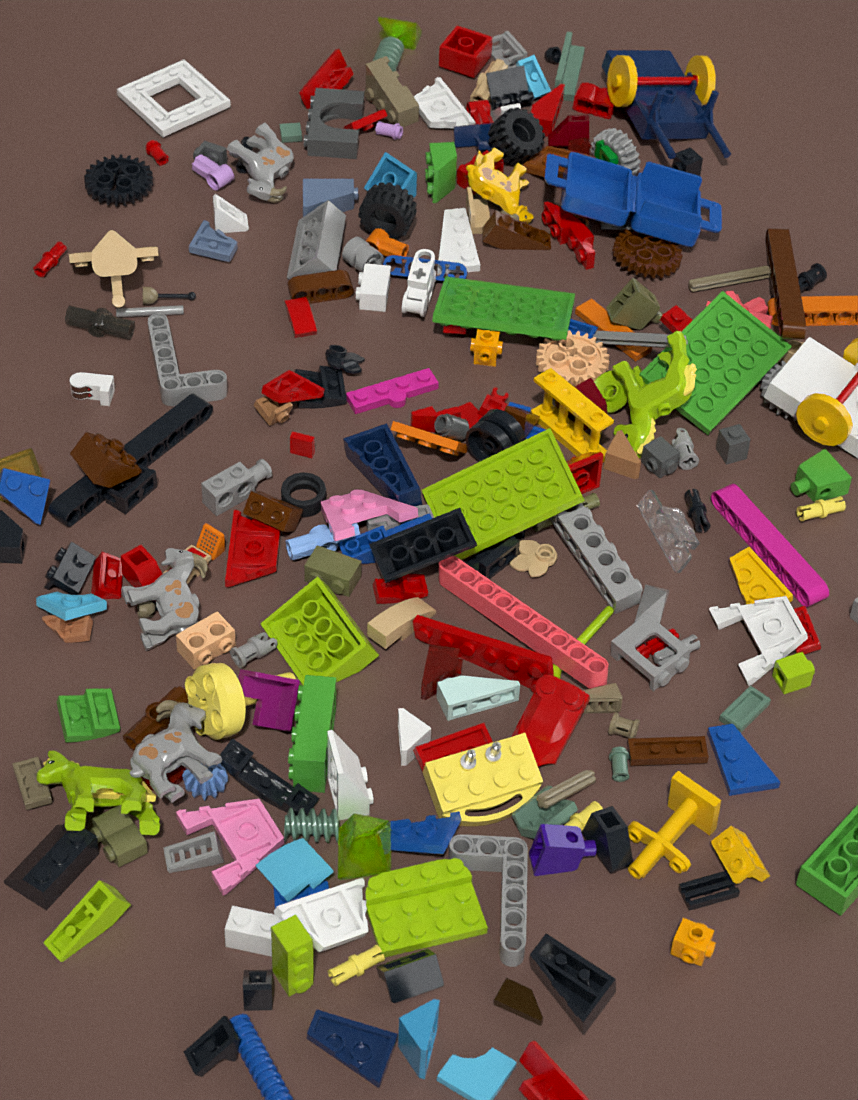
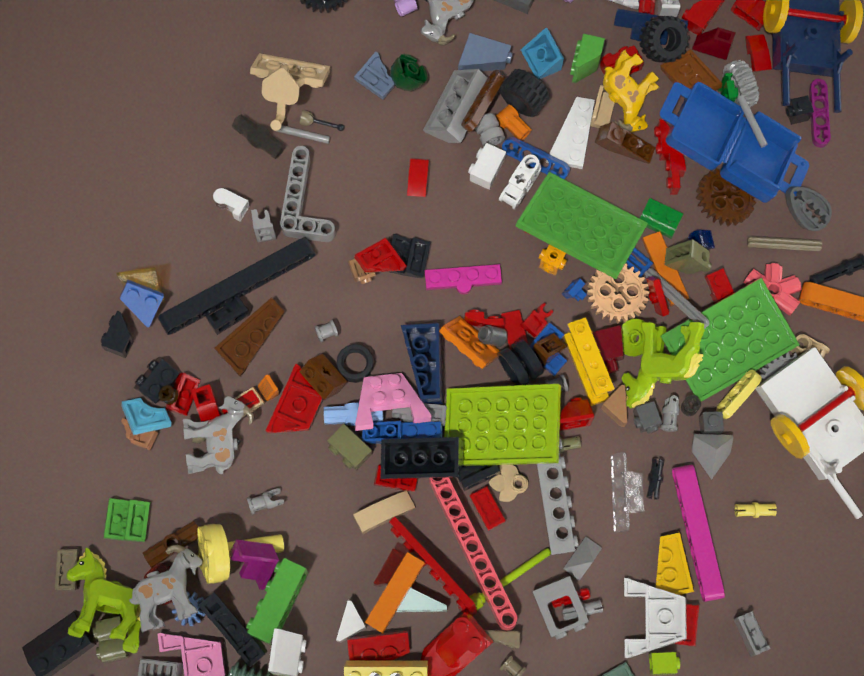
camera: 20 degrees right, 25 degrees up
(49, 259) = (242, 55): red axle -> none
(92, 575) = (172, 396): none -> dark brown bush
(104, 460) = (210, 291): reddish brown slope -> none
(142, 393) = (263, 227): none -> light grey hinge
(166, 502) = (245, 341): none -> reddish brown wing
(205, 640) = (231, 477): light nougat brick -> none
(227, 217) = (393, 49): white slope -> none
(227, 488) = (298, 341): light grey brick -> none
(247, 229) = (407, 73): none -> dark green cylinder
(302, 445) = (371, 313): red tile -> none
(319, 635) = (317, 507): lime slope -> none
(321, 286) = (444, 152): reddish brown beam -> none
(339, 358) = (436, 236): black plate -> none
(345, 227) = (483, 100): none -> reddish brown beam
(452, 682) = (395, 592): none -> orange tile
(521, 586) = (487, 508): none -> red plate
(525, 369) = (574, 290): none -> blue tile
(580, 145) = (715, 64): clear red tile -> none
(587, 287) = (661, 218): none -> green plate
(616, 345) = (657, 296): none -> red plate
(619, 123) = (759, 52): none -> red slope
(644, 174) = (752, 121): none -> light grey bar
(703, 431) = (685, 407): none -> clear smoke bush
(712, 166) = (820, 113): none -> magenta beam
(734, 227) = (816, 202): none -> dark grey piece
(745, 469) = (711, 451): none -> light grey slope
(751, 404) = (739, 393): none -> light yellow beam
(785, 284) = (823, 274): reddish brown beam -> none
(821, 478) = (768, 480): bright green torso -> none

